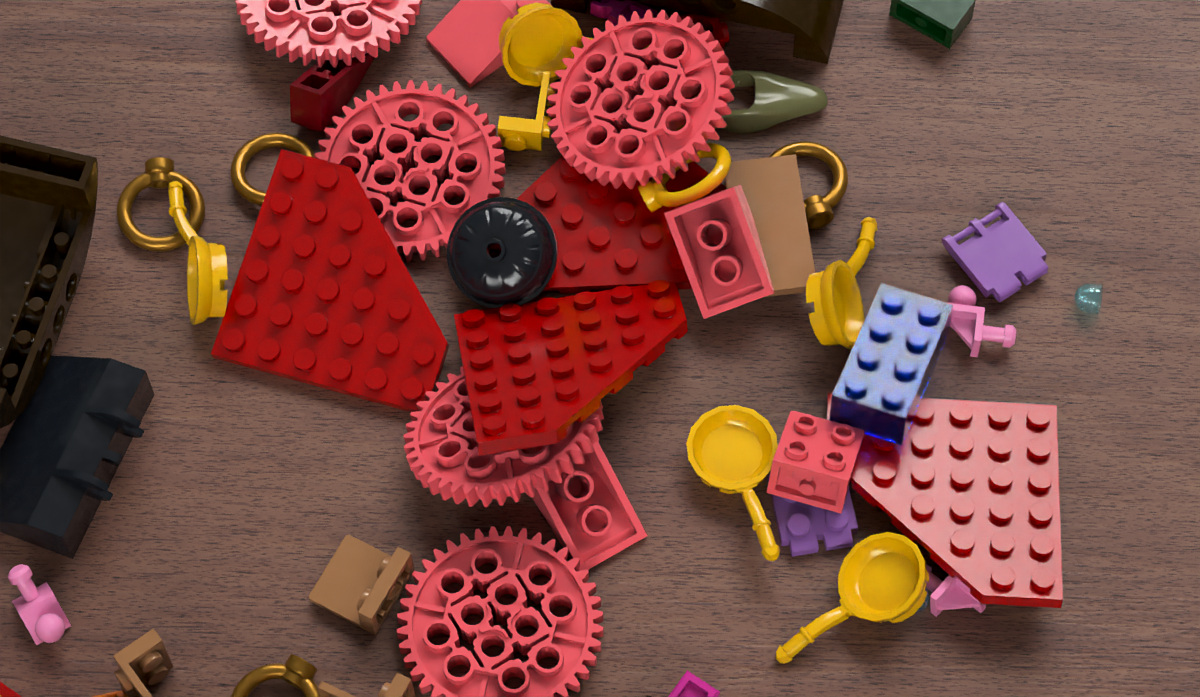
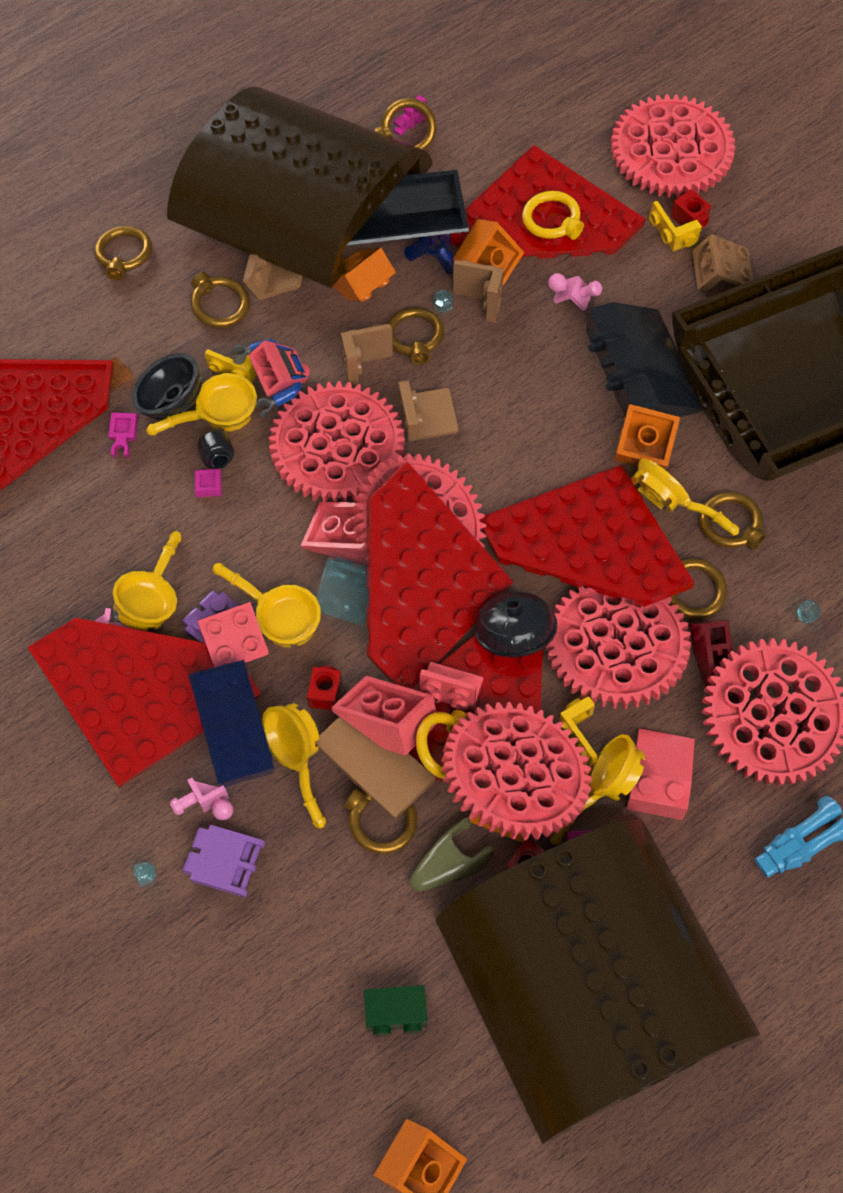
camera: 140 degrees right, 0 degrees up
(166, 340) = (646, 436): none -> orange slope
(190, 61) = (812, 612): none -> clear light blue hinge
(629, 232) = (451, 686): none -> coral bracket
(638, 436) = (344, 590): none -> clear light blue bracket
(758, 330) = (320, 698): none -> red brick

